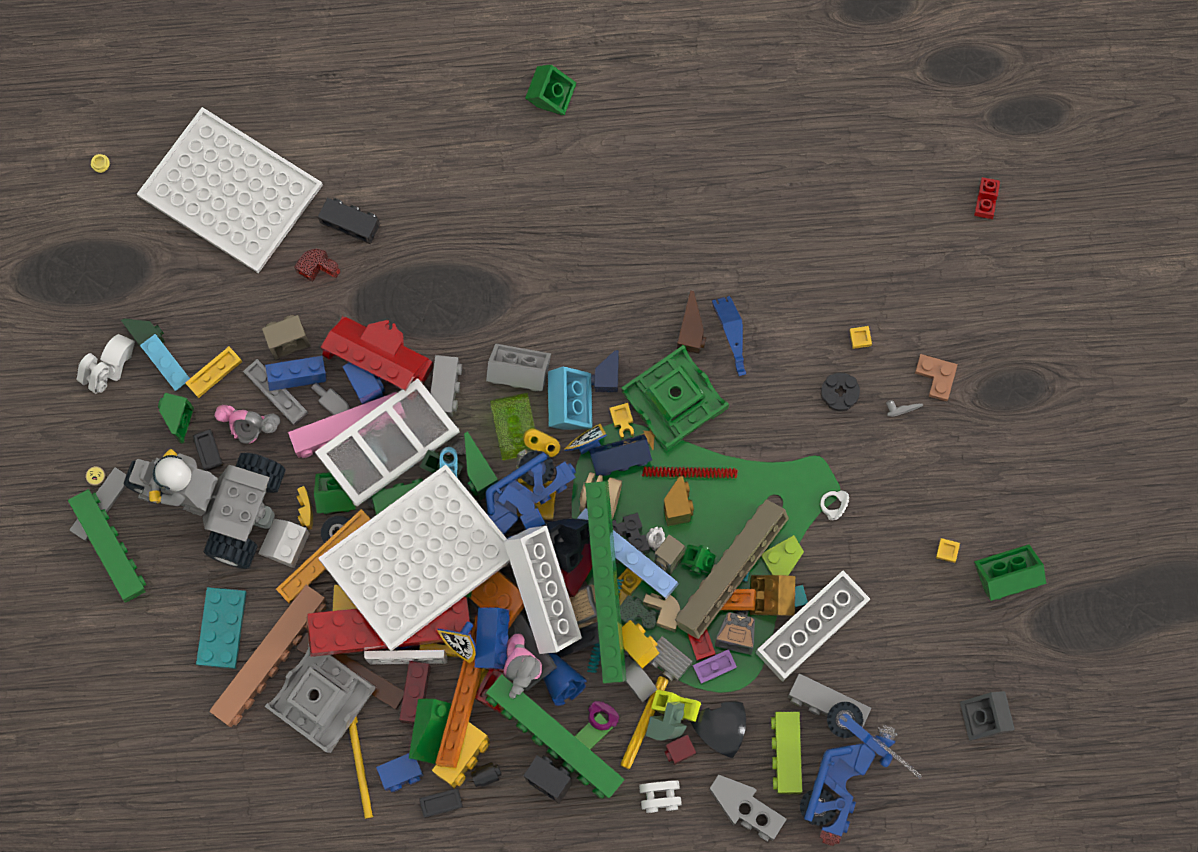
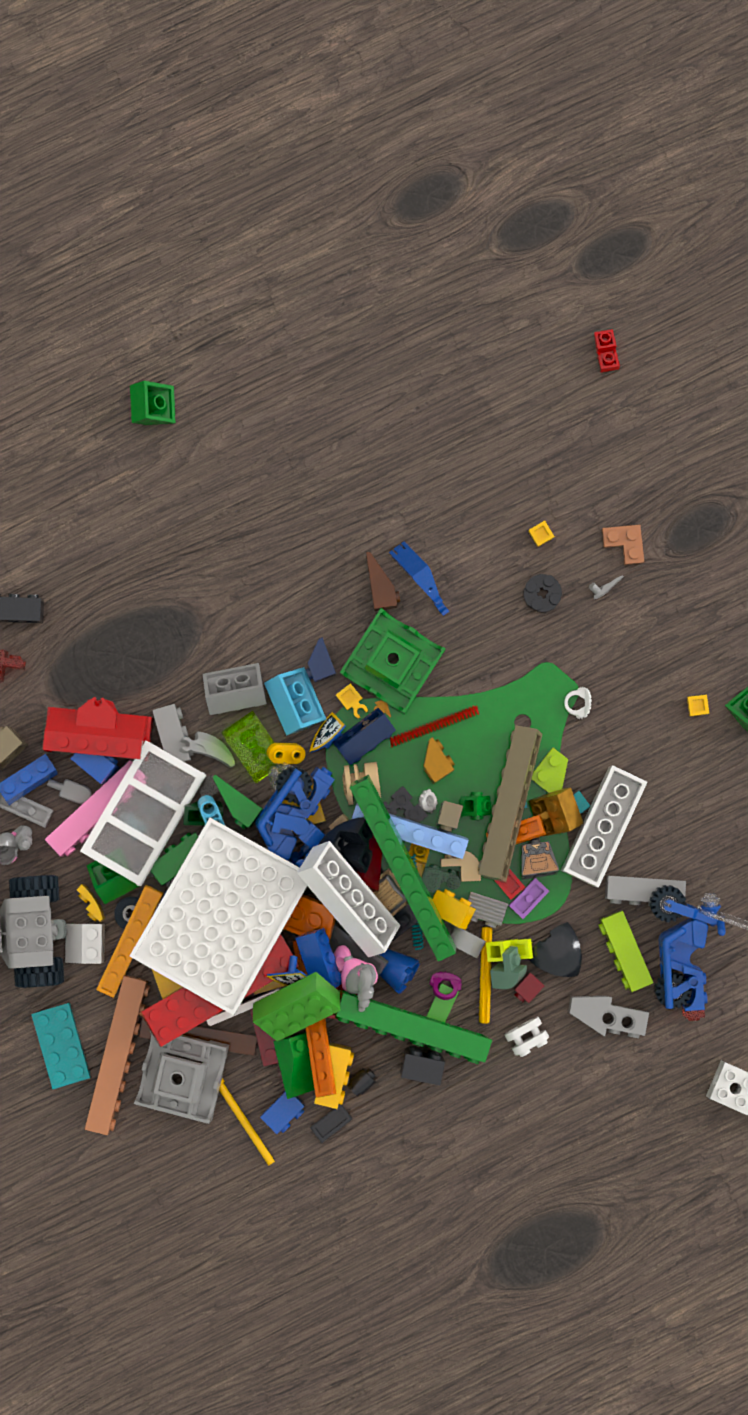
camera: 30 degrees left, 10 degrees up
(452, 670) = (296, 1006): none -> bright green brick
(473, 408) = (208, 746): none -> light grey piece

